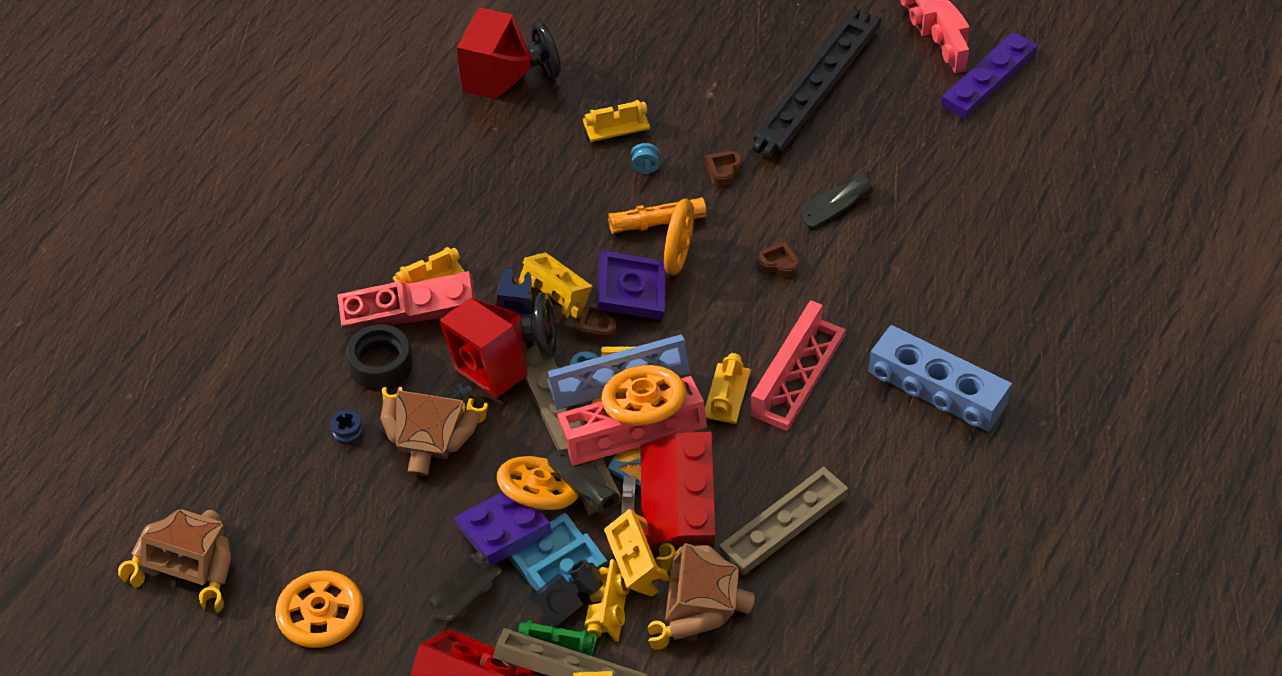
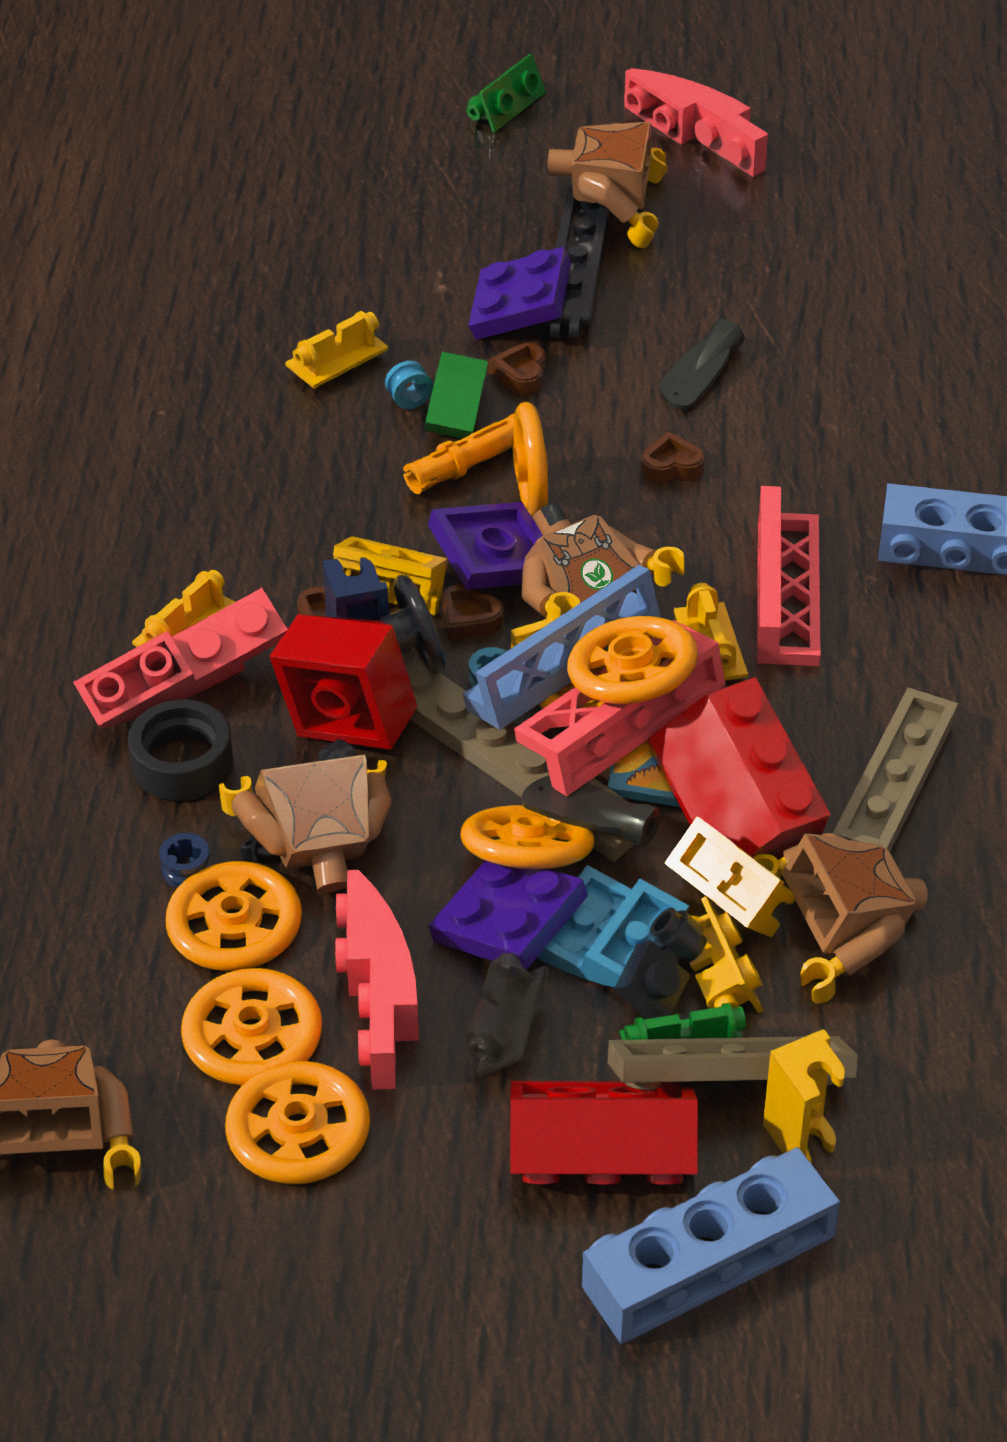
camera: 25 degrees left, 5 degrees down
(324, 516) = (227, 992): none -> light orange plate
(359, 493) = (233, 878): none -> light orange plate
(409, 544) = (378, 973): none -> coral slope
(495, 54) = (128, 308): red piece -> none
(628, 494) = (666, 830): light grey piece -> none
(669, 173) = (456, 395): none -> green slope
(670, 314) = (583, 559): none -> torso
(748, 115) = (520, 293): none -> dark purple plate
(851, 47) = (613, 169): none -> medium nougat torso
(989, 75) = (800, 165): dark purple plate -> none

